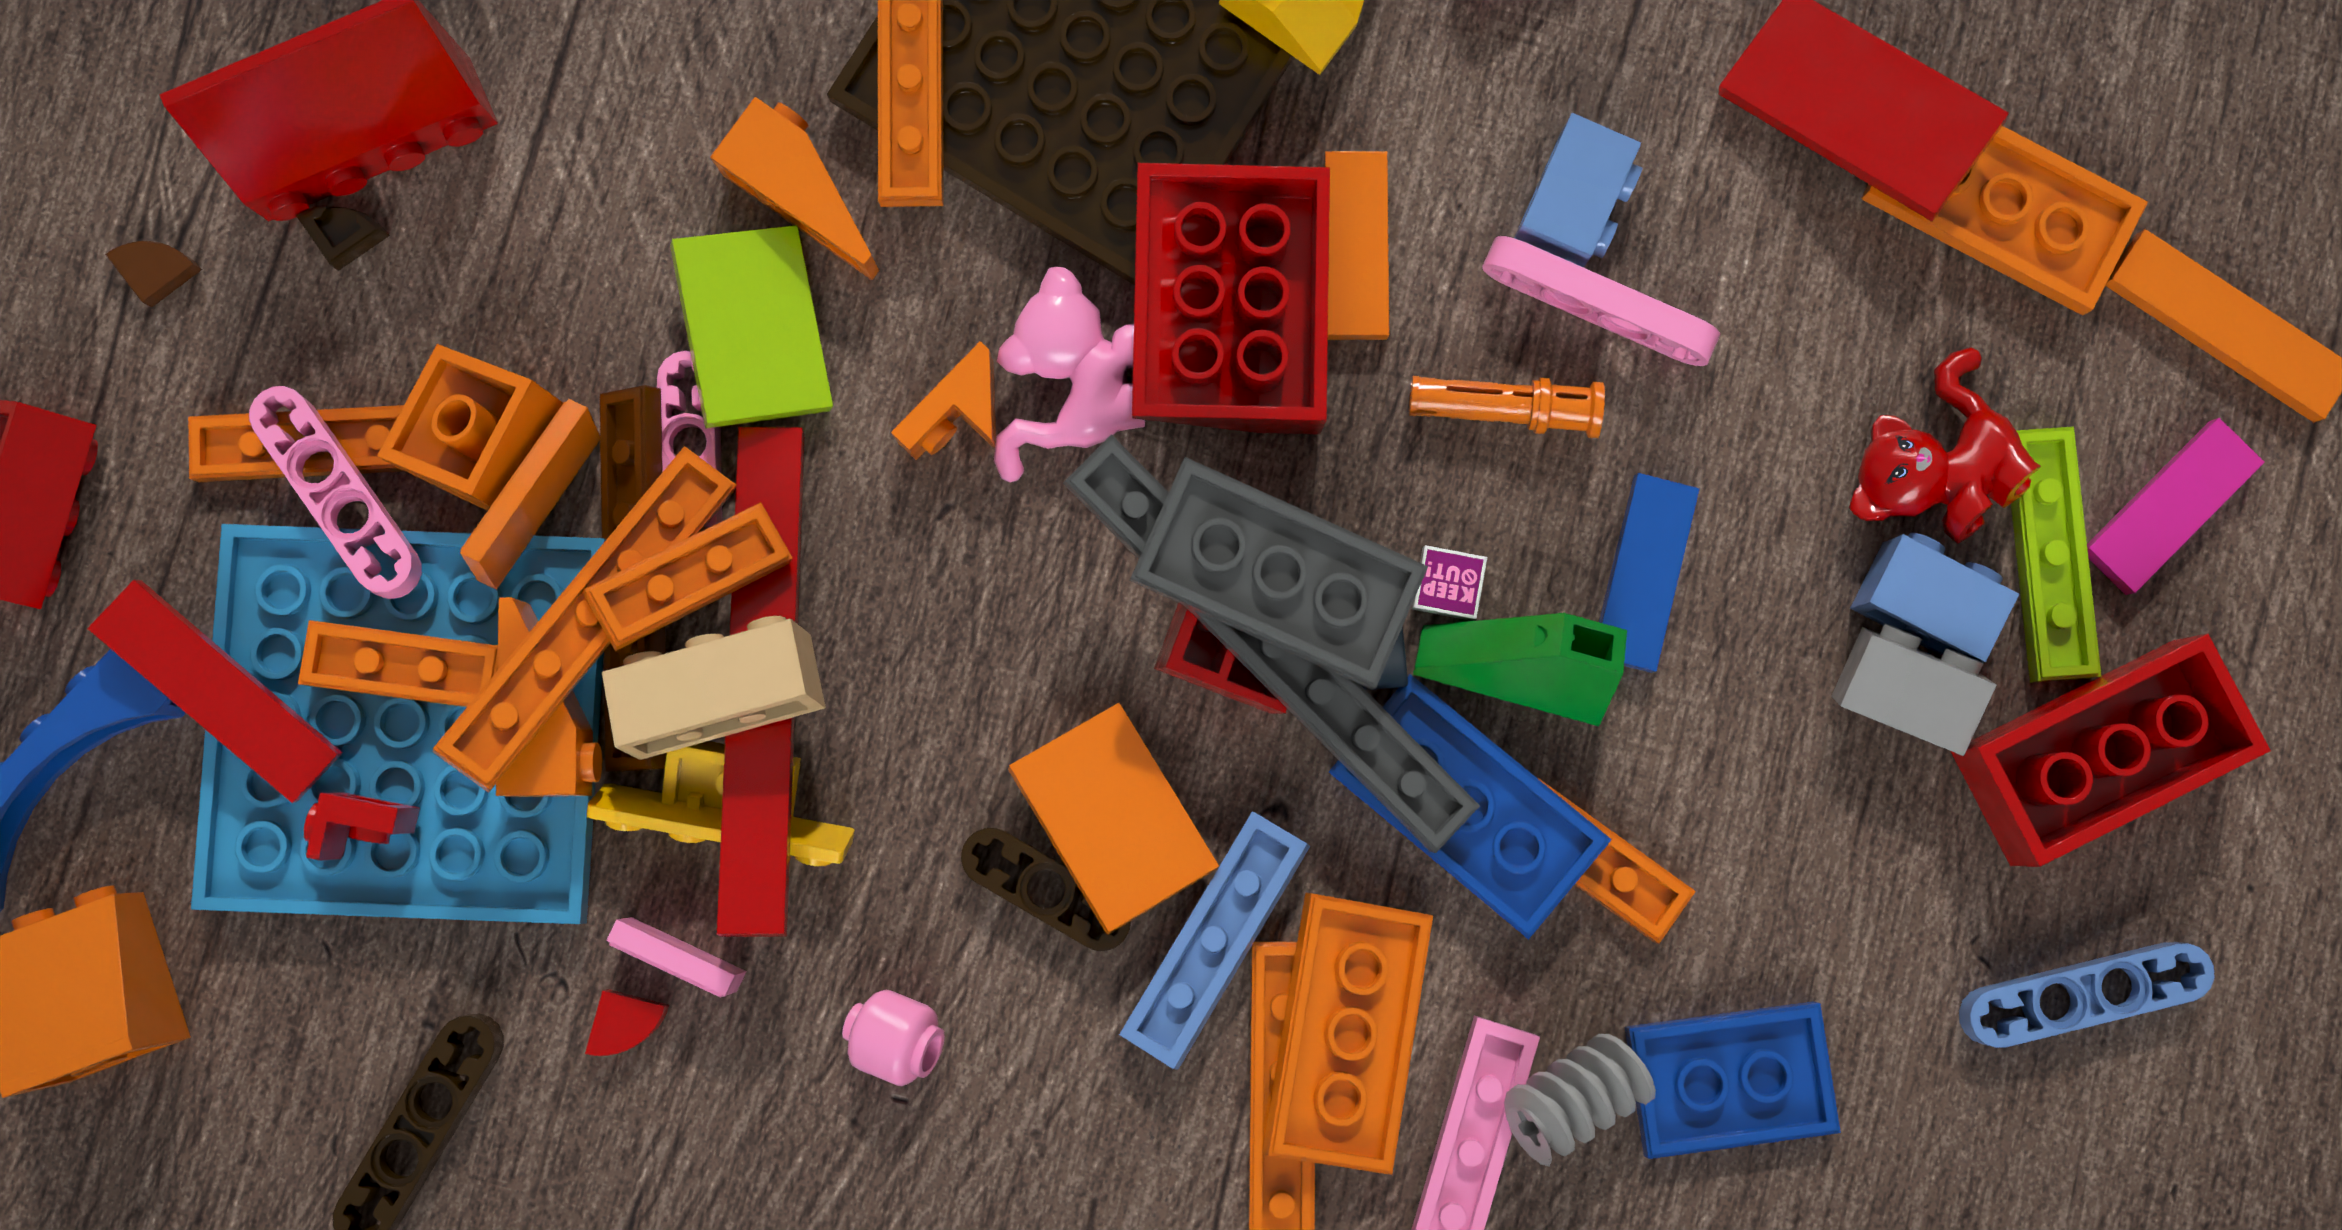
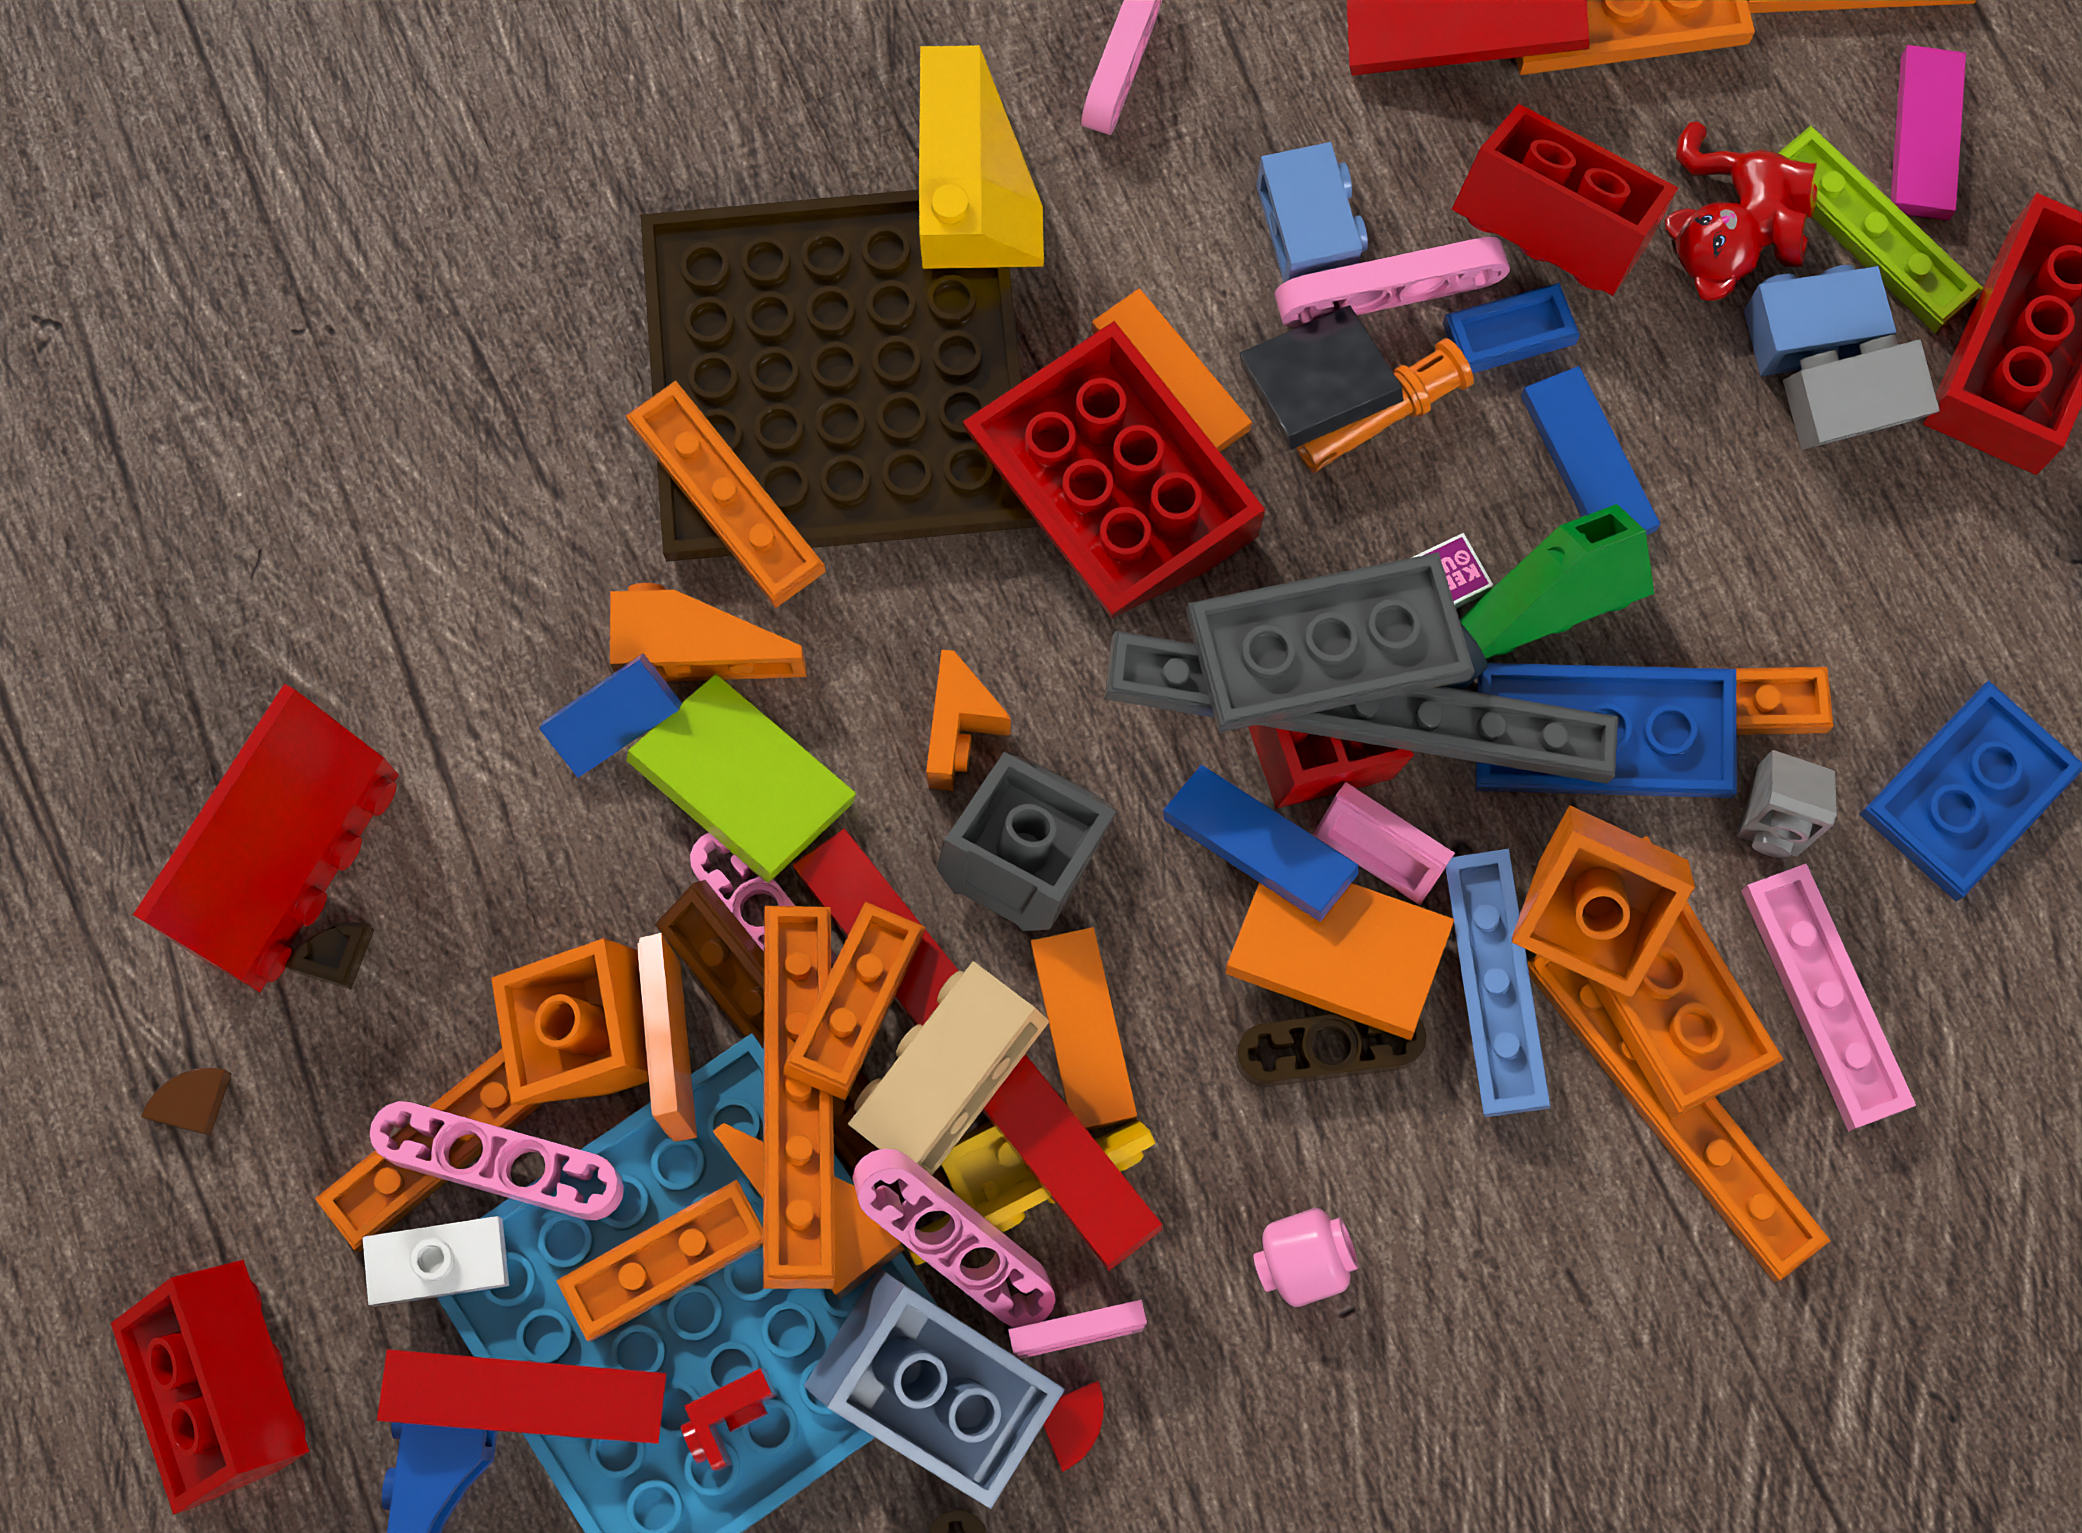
camera: 35 degrees left, 10 degrees down
(233, 536) = (435, 1261): none -> white plate
(522, 919) = (933, 1388): none -> sand blue slope
(592, 757) = (959, 1236): none -> bright pink beam
(684, 199) = (610, 715): none -> blue tile
(865, 728) = (1083, 1028): none -> orange tile
(934, 543) = (1024, 842): none -> dark grey slope
(1063, 339) = (1003, 604): bright pink animal -> none
(1116, 687) = (1261, 842): none -> blue tile
(1213, 762) = (1383, 843): none -> bright pink tile
(1341, 945) = (1602, 901): none -> orange slope
(1474, 339) = (1321, 377): none -> black tile
(1563, 980) = (1787, 805): none -> light grey slope
(1576, 1096) = (1875, 884): light grey piece -> none
(1671, 414) = (1513, 328): none -> blue tile
(1798, 338) = (1564, 199): none -> red brick

